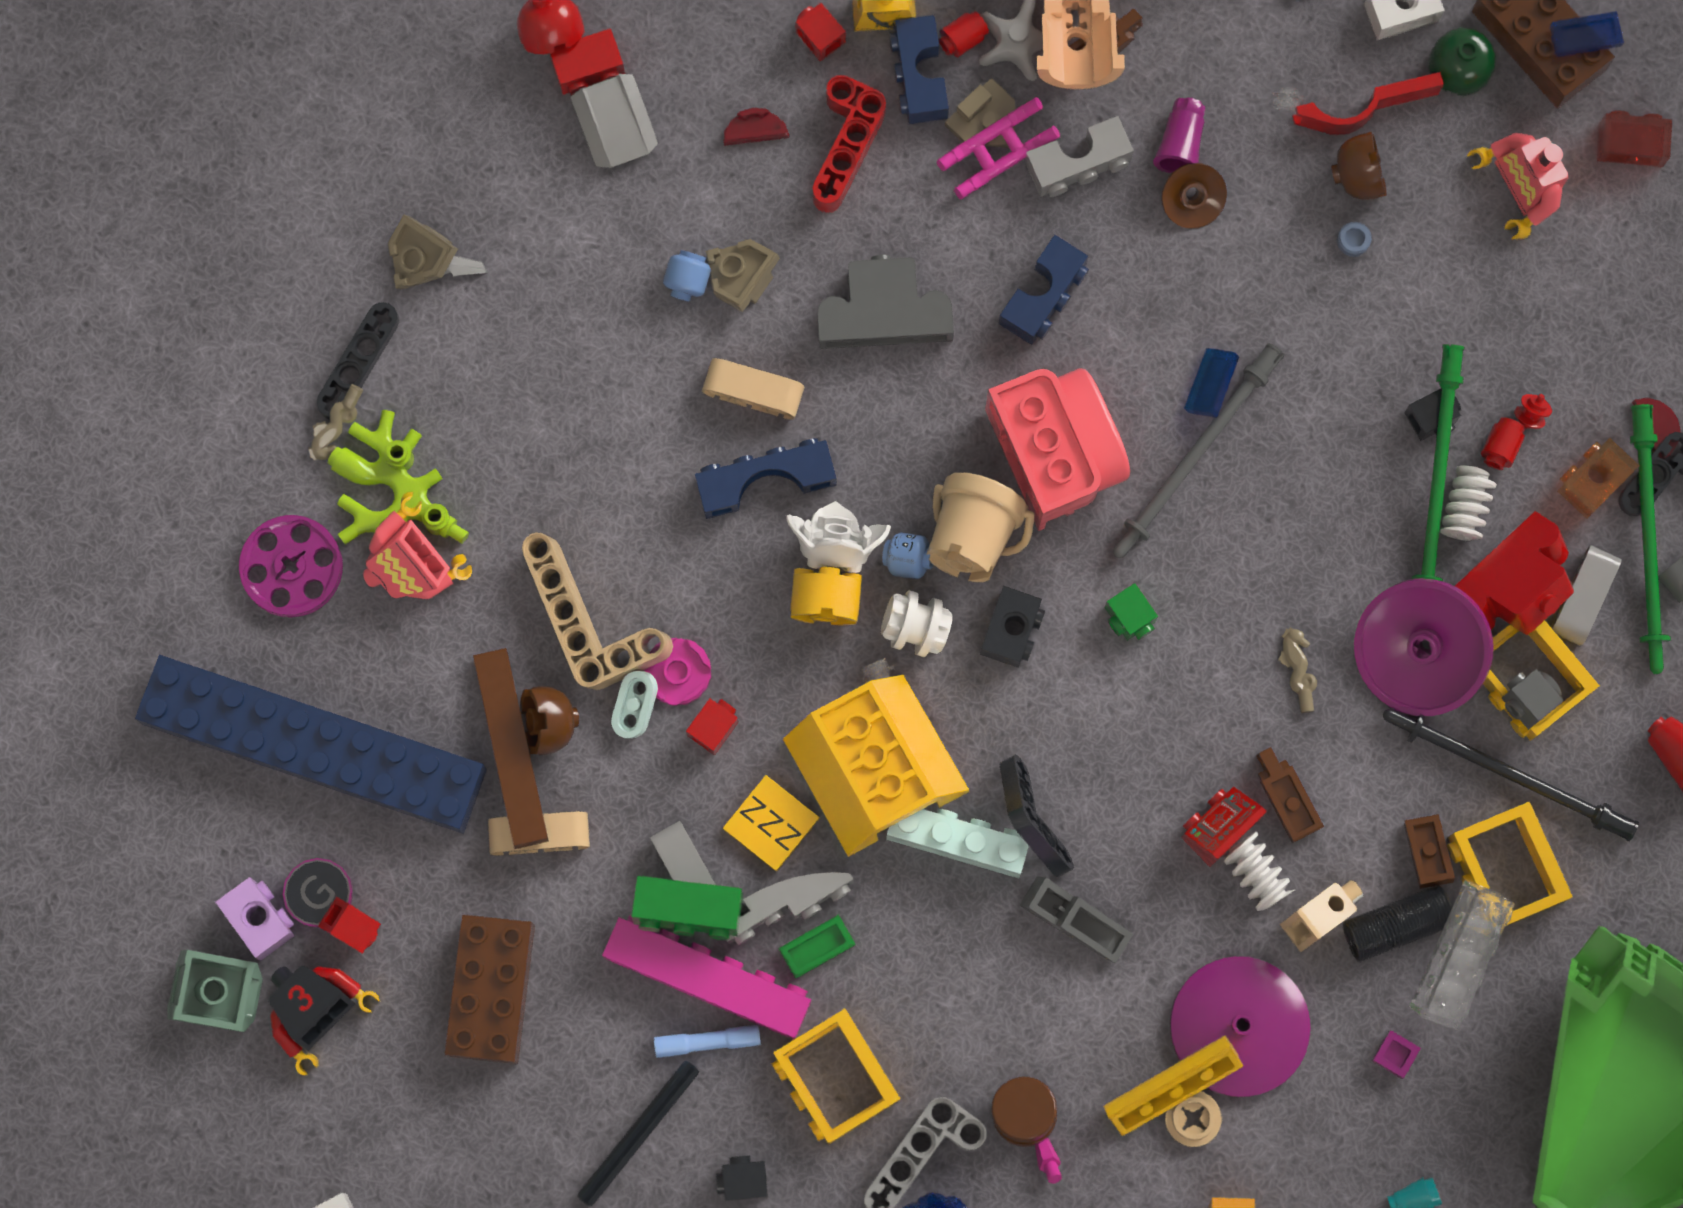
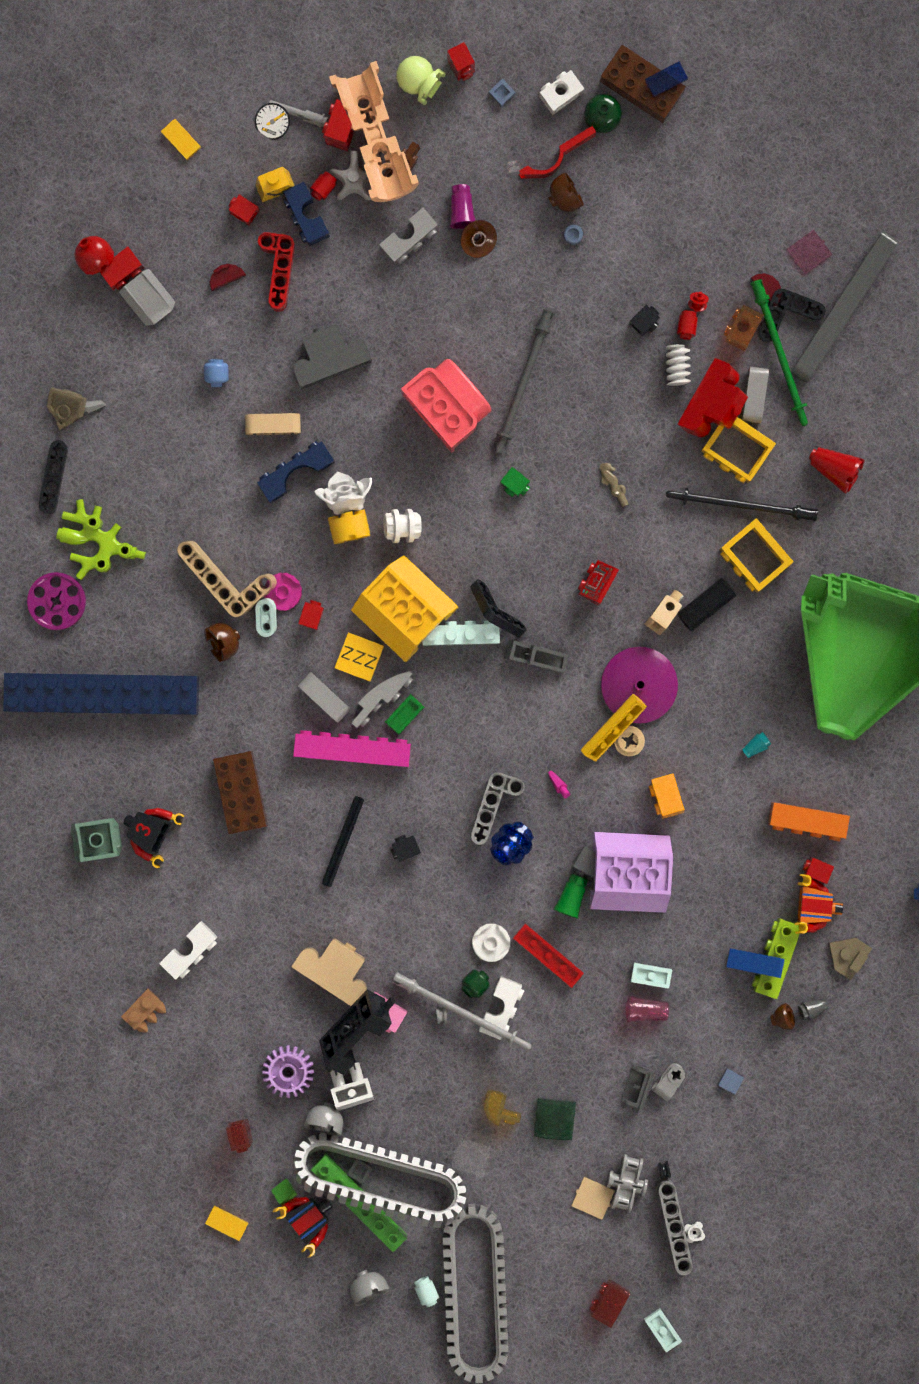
camera: 15 degrees left, 10 degrees up
(238, 907) = (93, 793): lavender brick -> none
(313, 888) = (132, 770): black tile -> none
(326, 433) = (50, 523): dark tan animal -> none
(350, 925) = (155, 783): red brick -> none
(407, 561) = (118, 579): coral torso -> none
(510, 748) = (208, 662): reddish brown tile -> none
(563, 832) = (238, 702): tan beam -> none
(684, 1043) = (352, 787): light blue piece -> none
(687, 907) = (330, 717): green brick -> none
(741, 272) = (244, 361): dark tan plate -> none
(801, 1094) = (421, 794): yellow window -> none
(877, 670) = (389, 557): clear plate -> none
(907, 555) = (386, 490): medium blue head -> none
(976, 145) = (350, 247): dark pink piece -> none
(976, 525) = (417, 463): tan piece -> none
(981, 110) = (350, 230): dark tan plate -> none
(1018, 607) = (451, 522): black brick -> none
(1024, 1111) = (540, 766): reddish brown head -> none
(1030, 315) = (410, 335): dark blue arch -> none
(1211, 382) = (519, 341): clear blue tile -> none
(1257, 872) = (624, 601): white piece -> none
(1288, 797) = (628, 555): reddish brown hinge -> none
(1396, 1054) = (725, 673): magenta plate -> none
(1406, 673) = (671, 467): magenta dish -> none
(1429, 851) = (711, 560): reddish brown plate -> none
(1449, 381) = (648, 301): green bar -> none
(1462, 955) = (744, 611): clear brick -> none
(1532, 175) = (659, 168): coral torso -> none
(1532, 697) = (741, 462): dark grey brick -> none
(1634, 139) = (710, 128): clear red brick -> none

